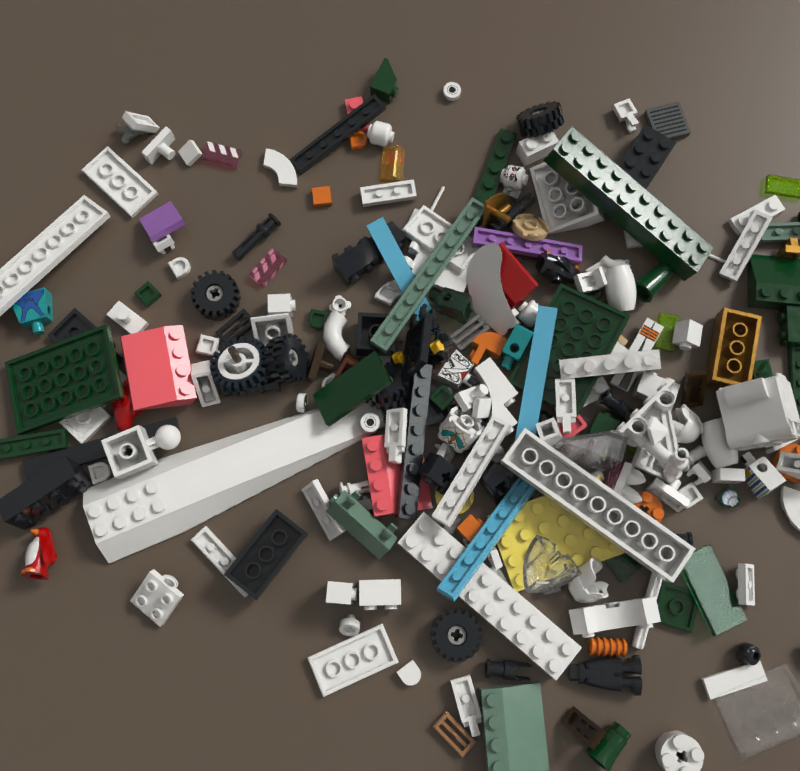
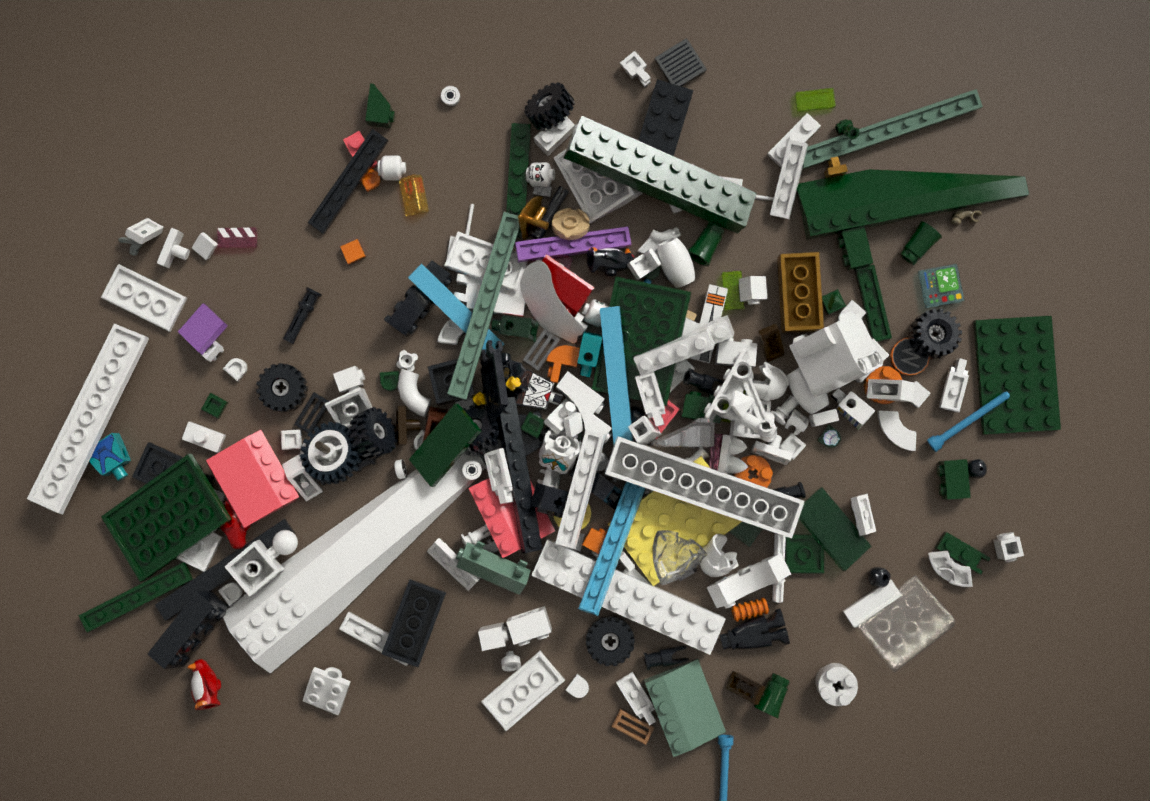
camera: 15 degrees left, 10 degrees up
(268, 267) = (323, 342): clear pink tile -> none
(282, 167) = (303, 233): white tile -> none
(388, 193) = (418, 228): white plate -> none

